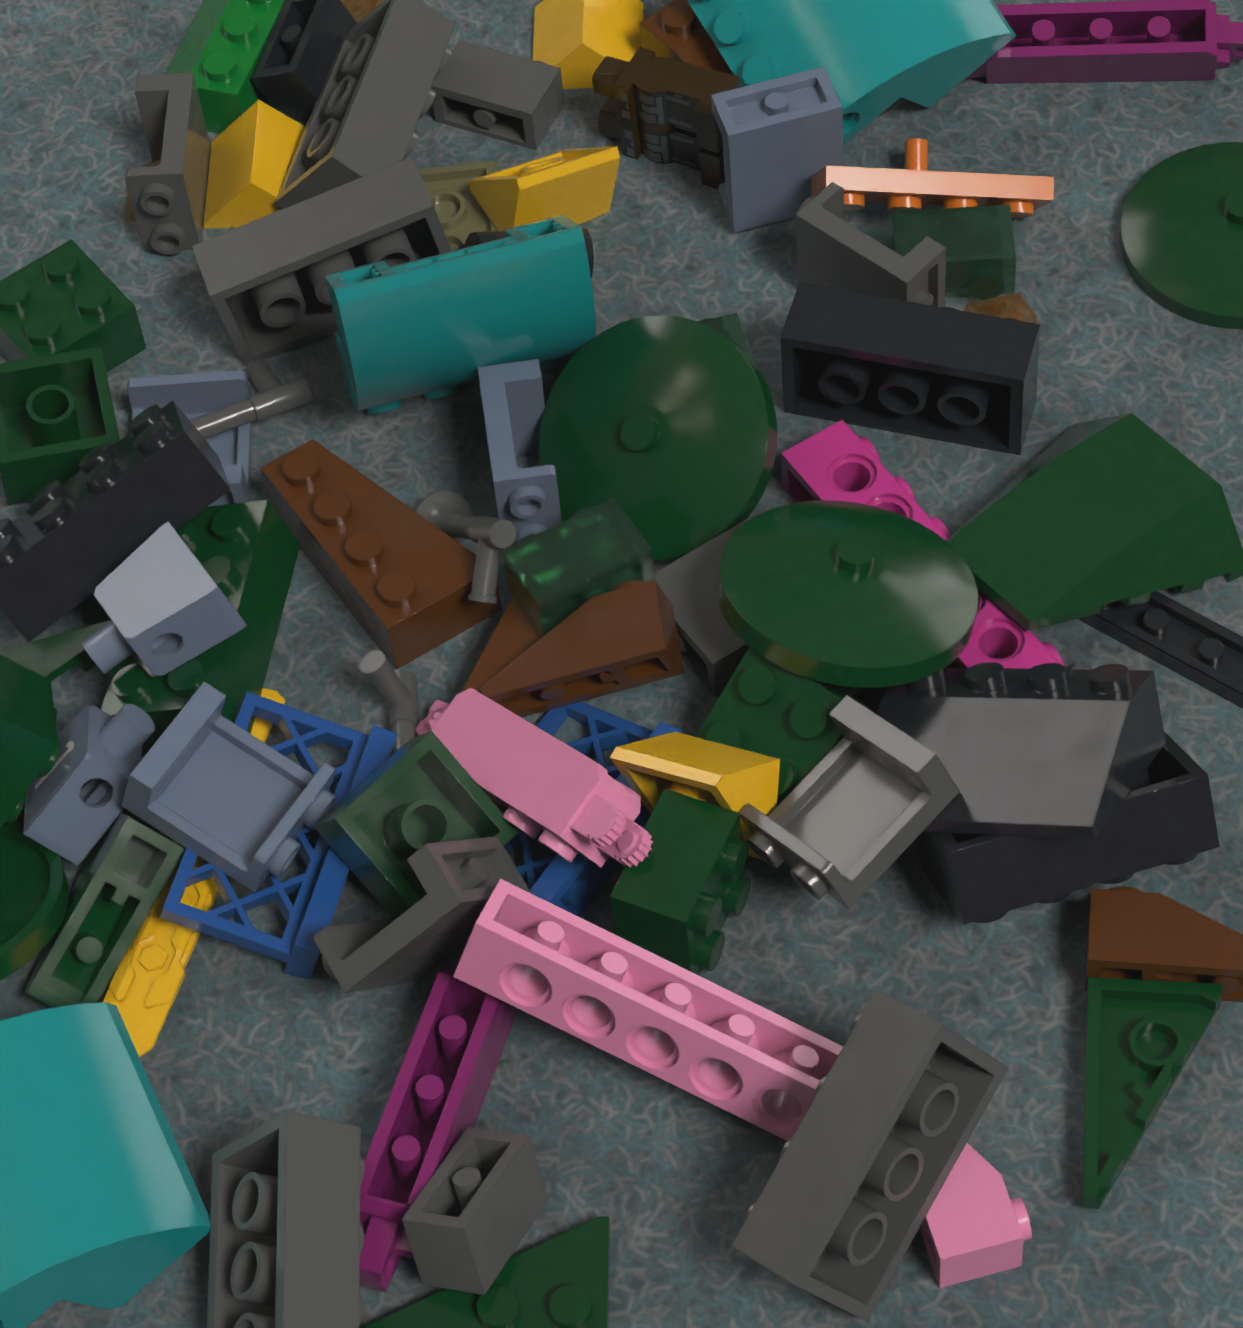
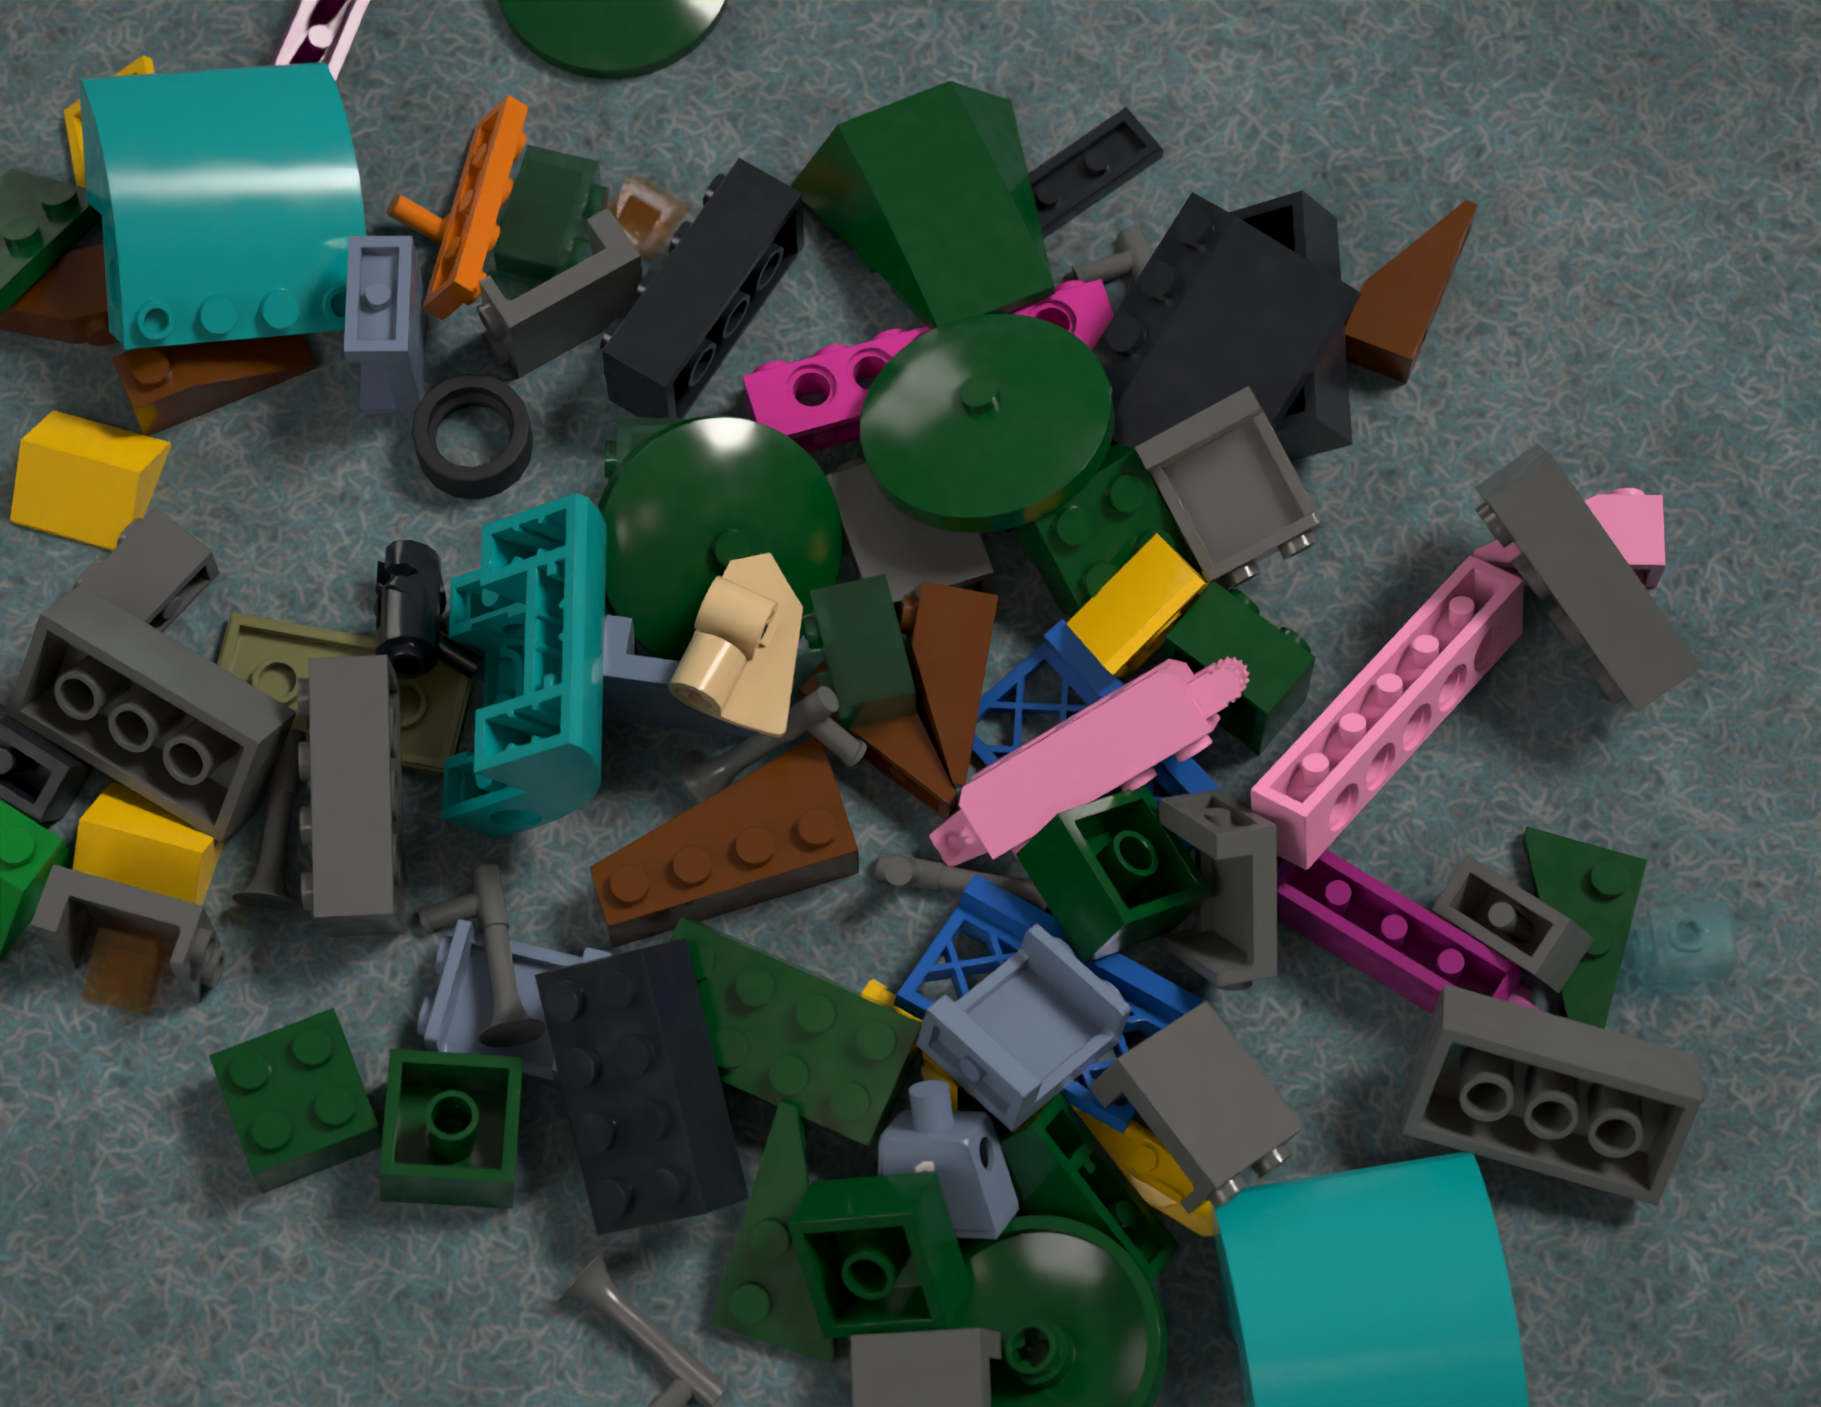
camera: 80 degrees left, 15 degrees up
(160, 608) = (802, 1038): sand blue torso -> none
(184, 958) = (1204, 1104): none -> dark grey panel
(536, 454) = (743, 648): none -> tan panel
(562, 183) = (303, 569): yellow slope -> none
(664, 111) = (269, 415): dark brown hips -> none
(711, 232) = (483, 479): none -> black tyre
(1133, 1055) = (1489, 363): dark green wing -> none

